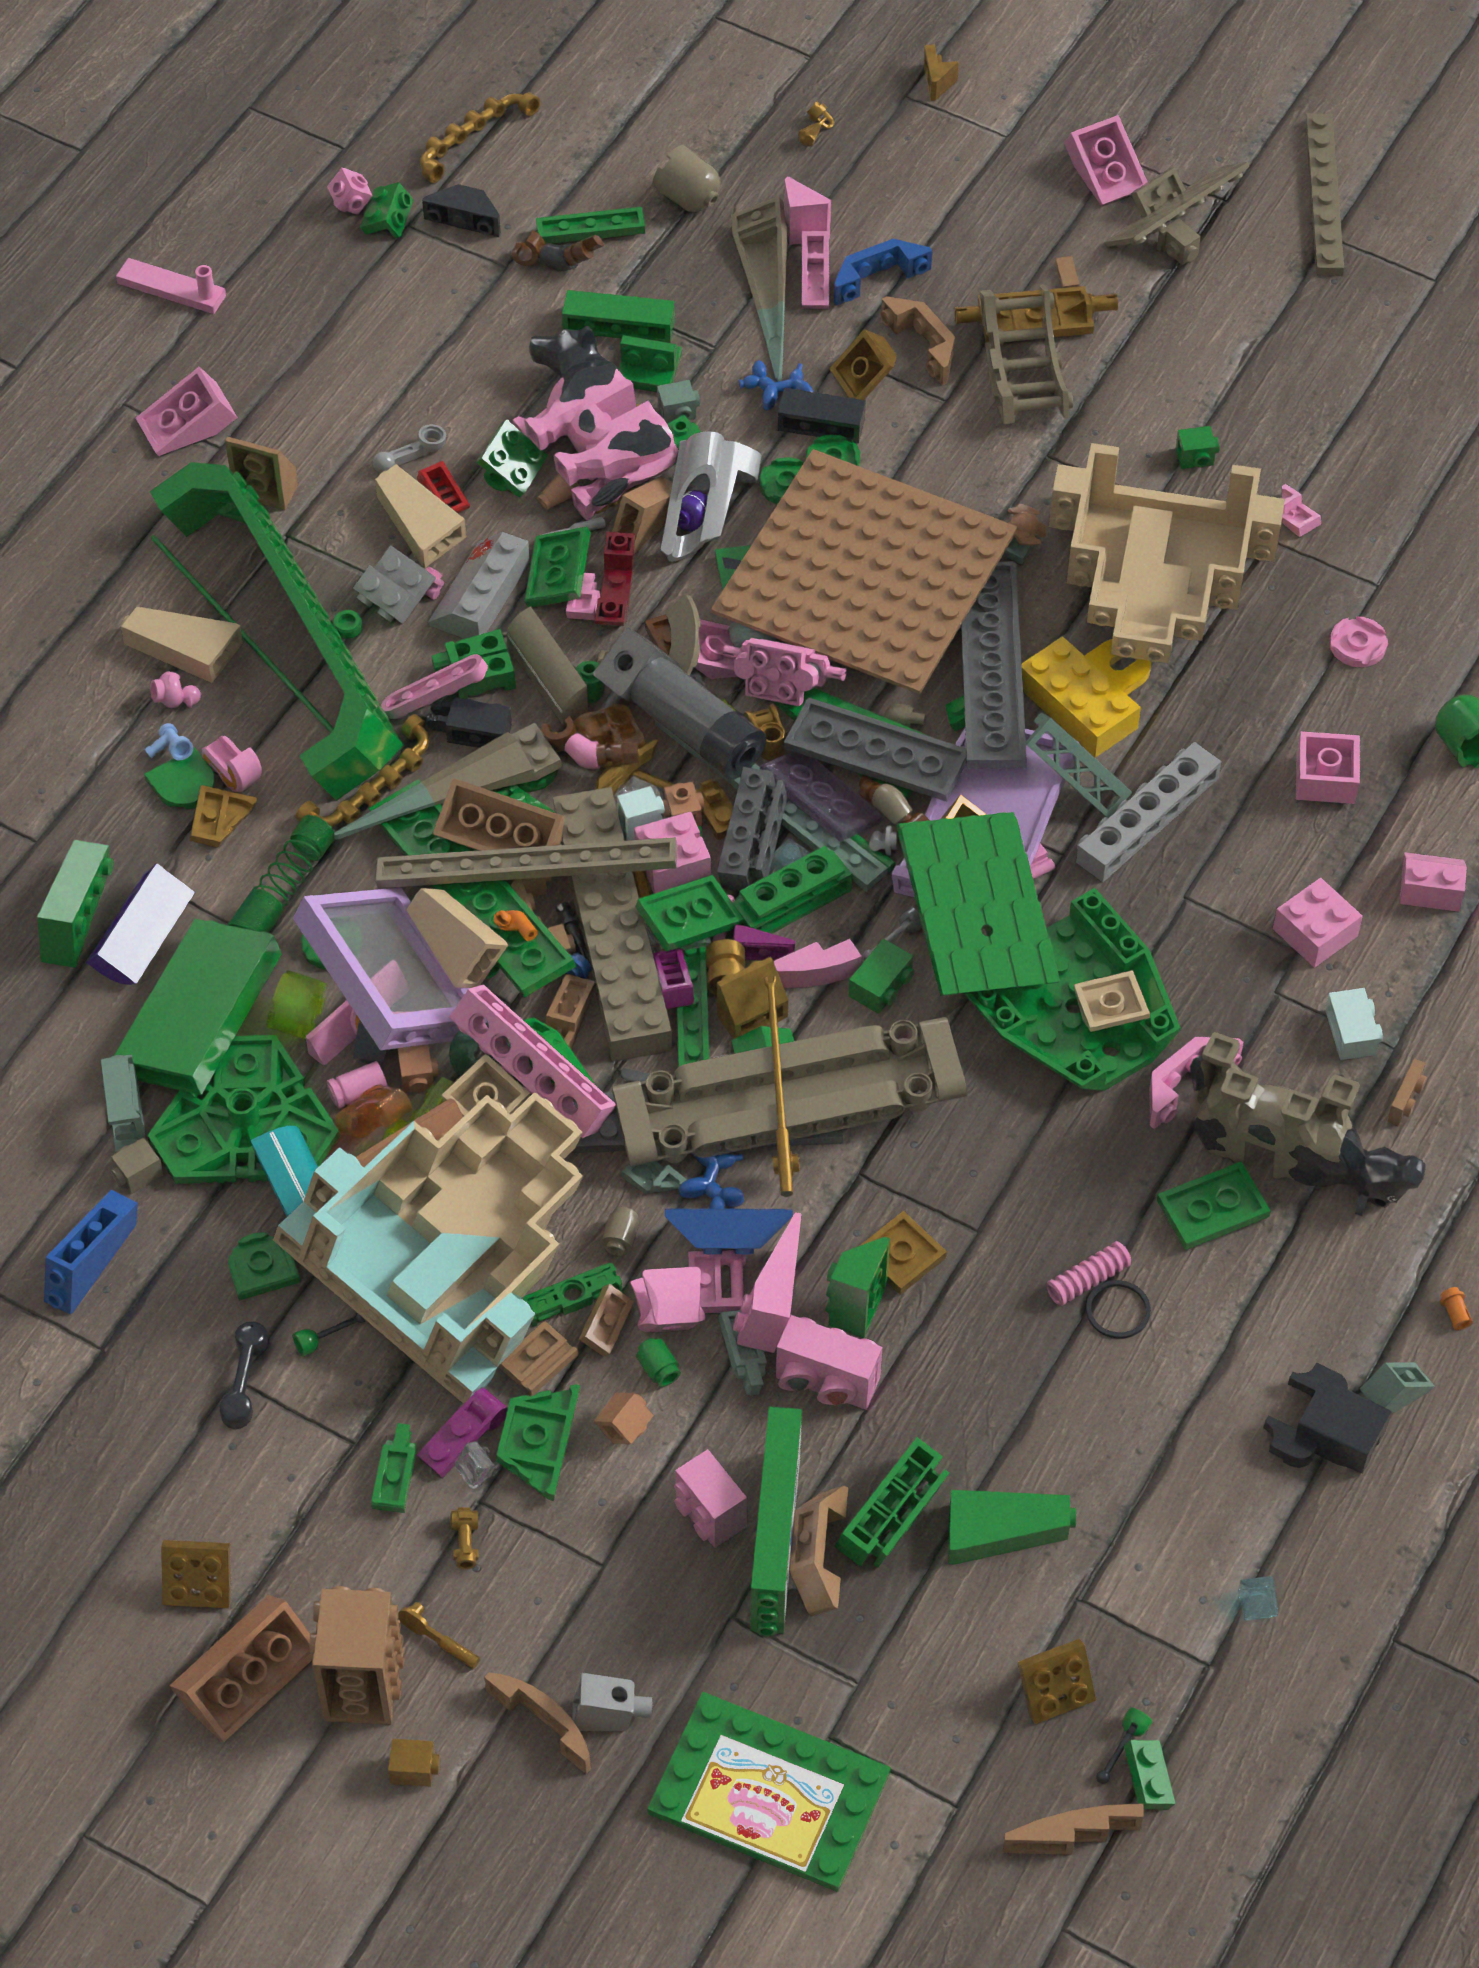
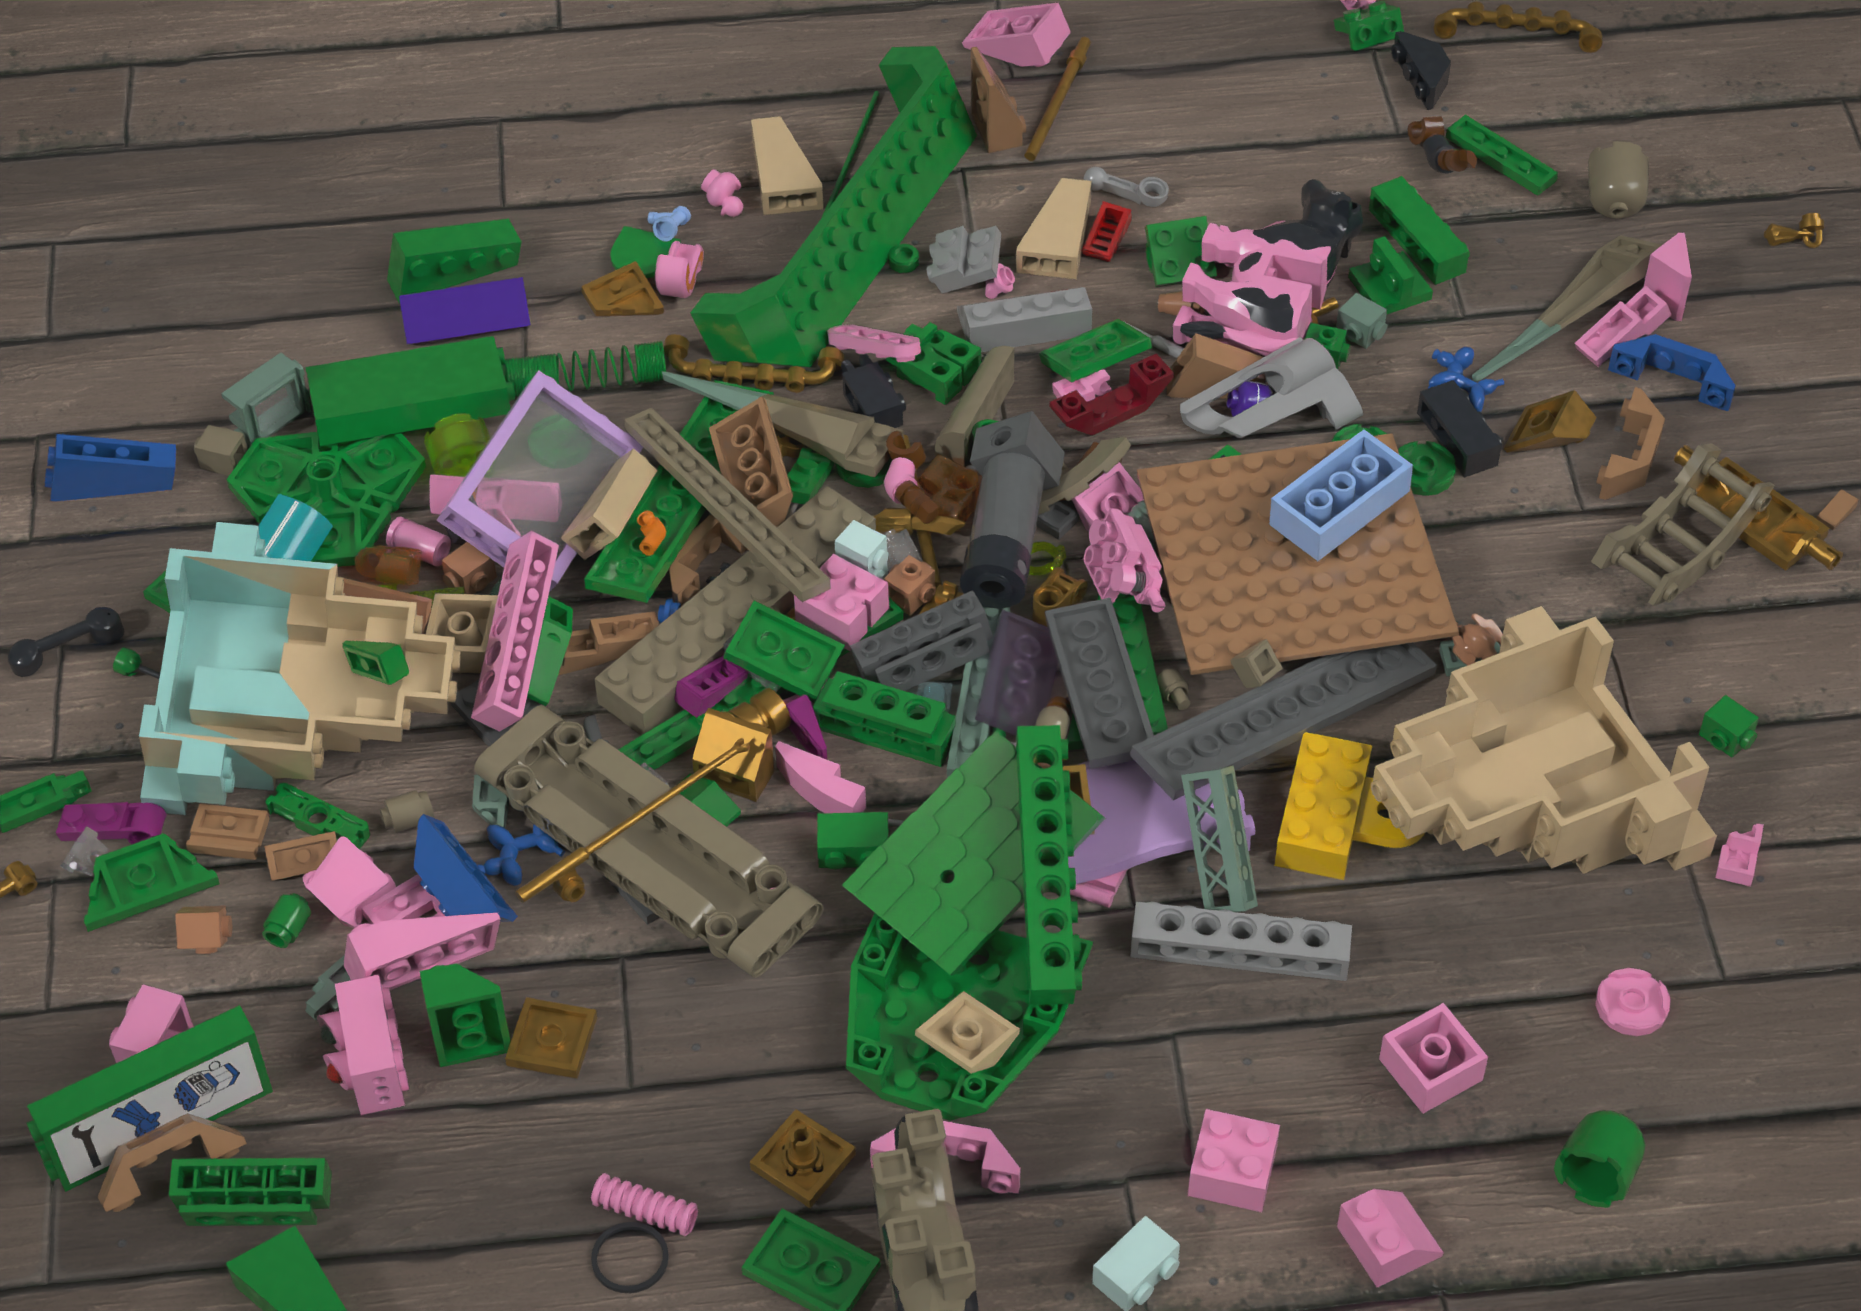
camera: 55 degrees right, 5 degrees down
(248, 400) = (1074, 63): none -> pearl gold bar
(501, 1158) = (376, 660): none -> green slope
(860, 507) = (1340, 495): none -> light blue brick
(948, 652) = (1256, 664): none -> dark tan slope
(1018, 865) = (1047, 983): none -> green brick
(1122, 1161) = (800, 1147): none -> pearl gold plate

